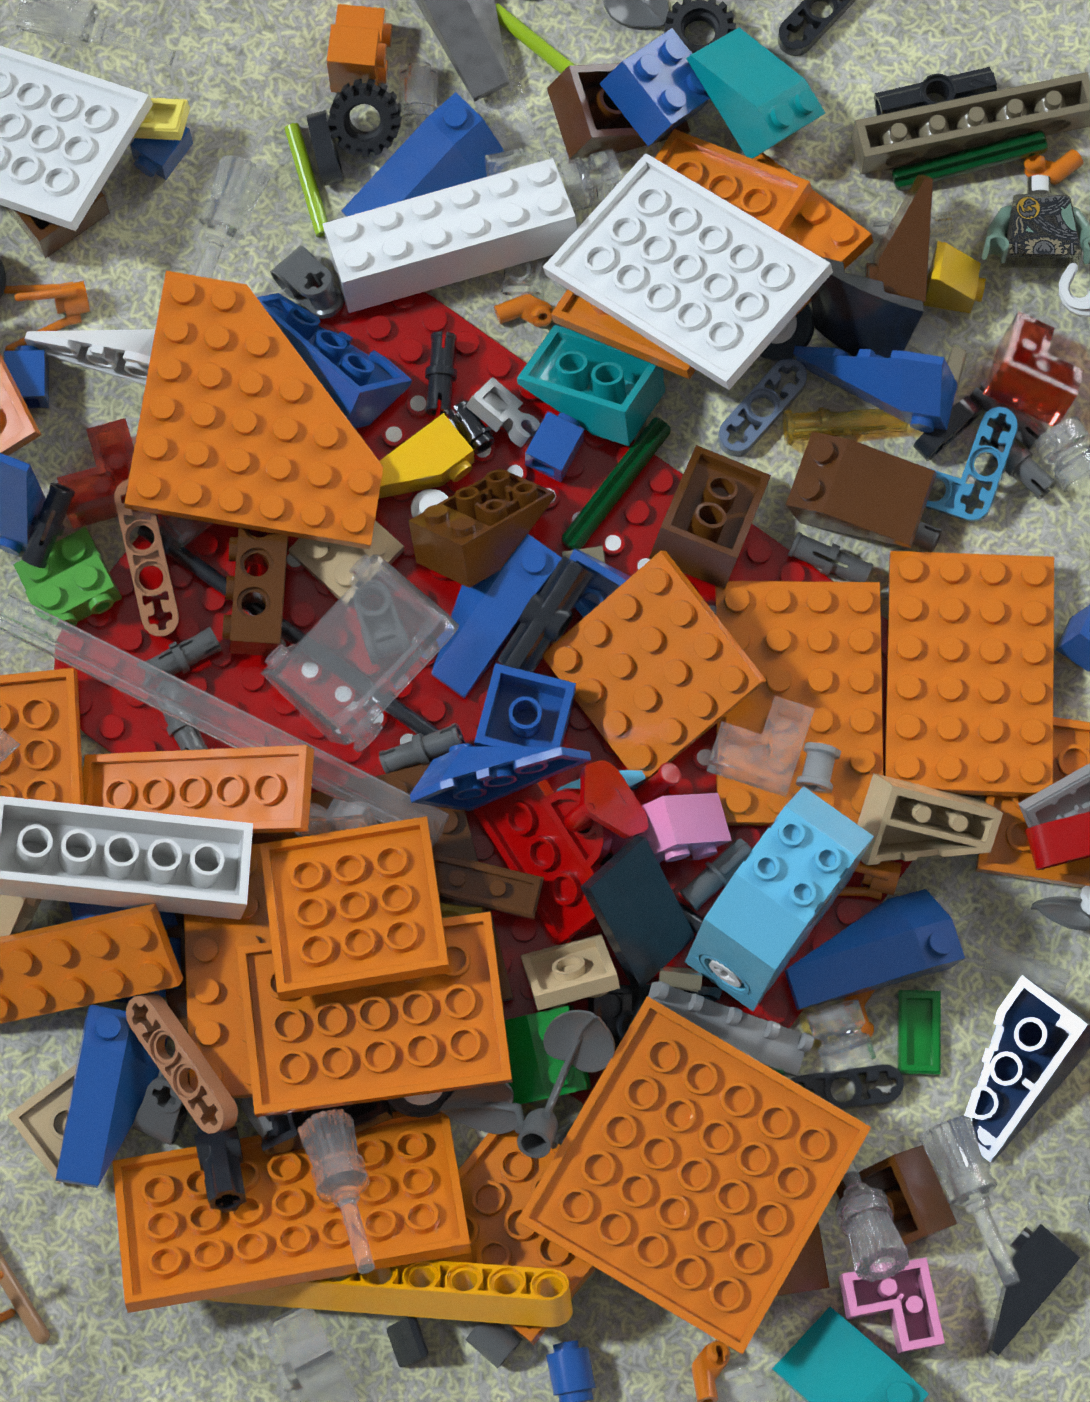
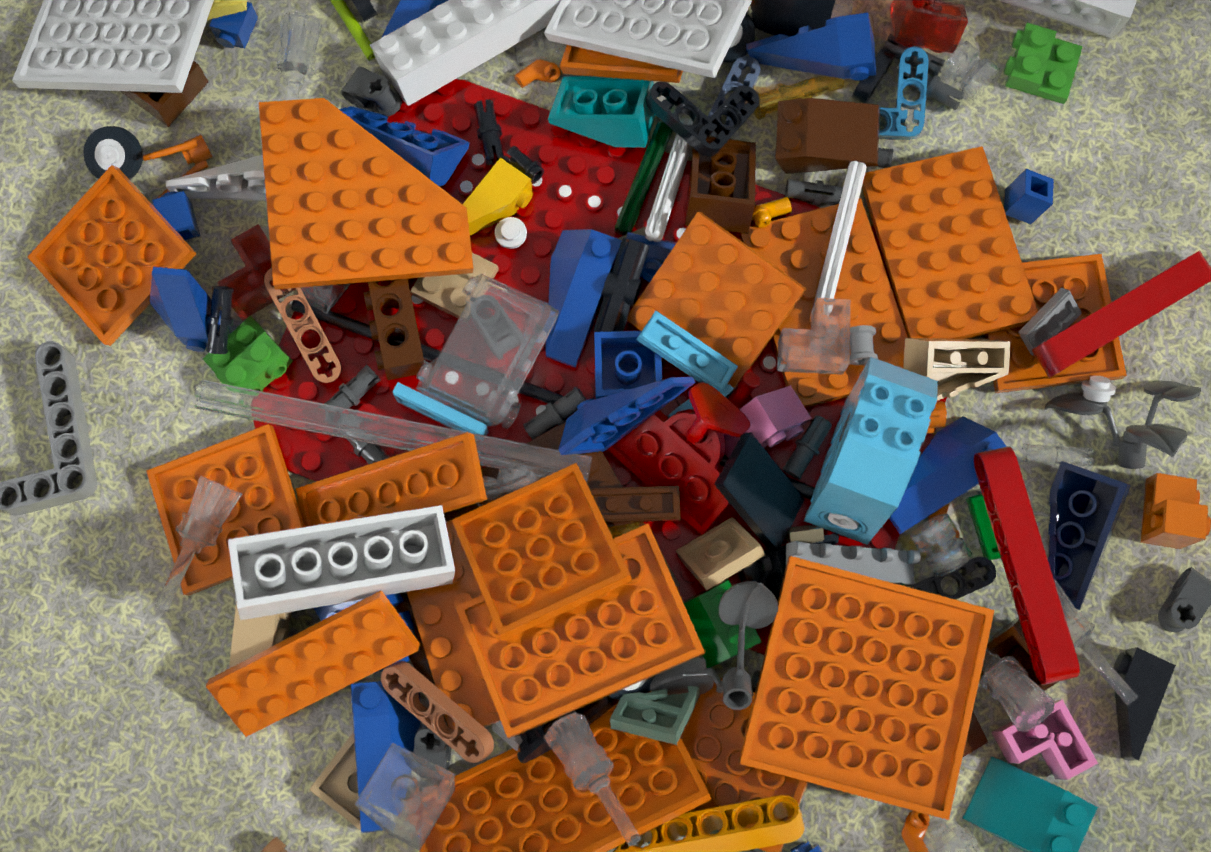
camera: 15 degrees left, 0 degrees up
(120, 1151) = (406, 795): none -> clear slope
(221, 1160) = (490, 782): black piece -> none
(281, 708) = (437, 410): none -> medium azure tile
(437, 1139) = (655, 714): none -> sand green wing
(478, 526) = (550, 234): reddish brown slope -> none
(500, 409) = (542, 146): light grey plate -> none
(555, 445) = (590, 161): blue brick -> none
(599, 719) = (686, 352): none -> medium azure tile
(648, 495) = (668, 187): none -> white axle
(705, 438) = (702, 124): none -> black beam
(750, 568) = (764, 212): none -> light orange arm
(837, 619) = (841, 230): none -> white axle
(929, 1085) = (1026, 566): none -> red beam

